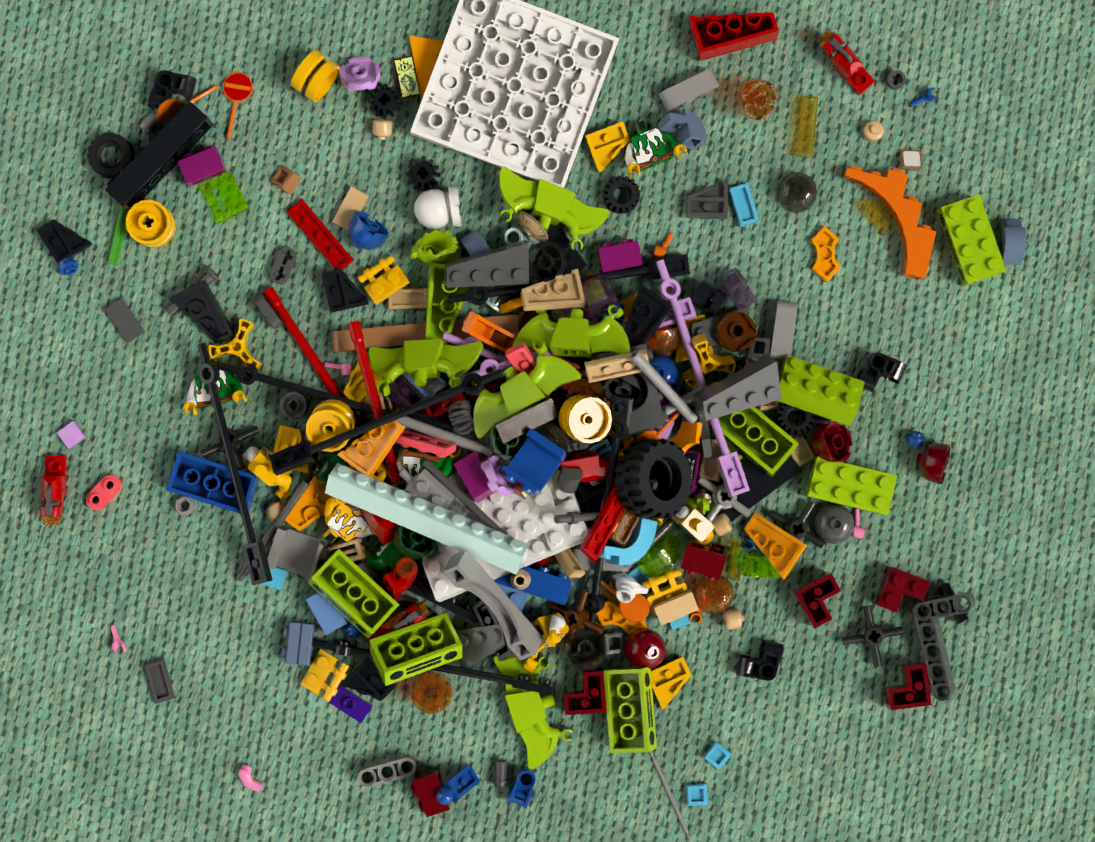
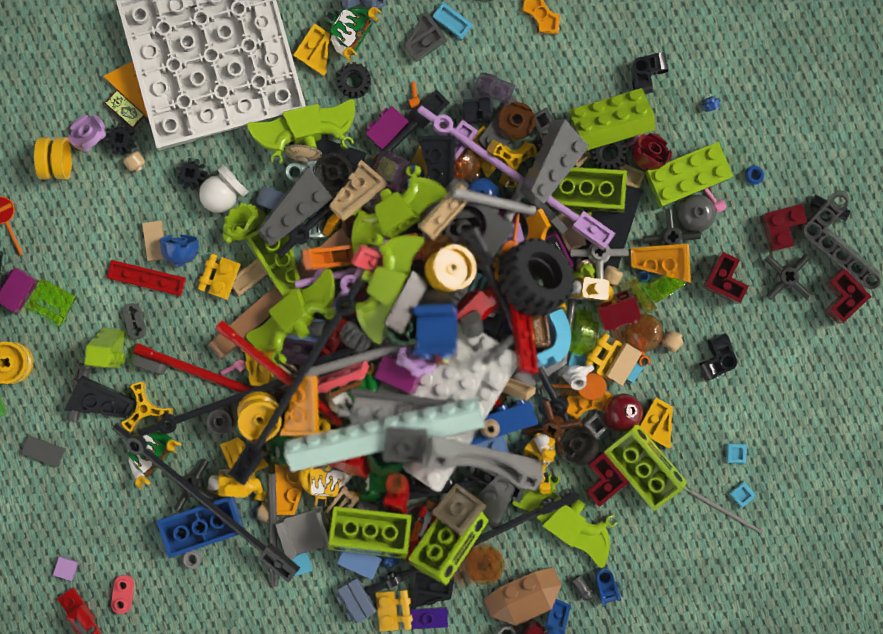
camera: 30 degrees left, 0 degrees up
(242, 273) = (106, 349): none -> lime wedge
(285, 179) = (88, 254): medium nougat slope -> none
(341, 291) = (193, 308): black wing -> none
(437, 540) = (404, 444): none -> dark grey tile
(443, 629) = (458, 509): none -> dark tan tile
(445, 745) = (524, 597): none -> medium nougat wedge
(783, 329) = (551, 93): light grey beam -> none
(914, 527) = (760, 175): none -> blue plate
(934, 462) = (738, 111): dark red cylinder -> none

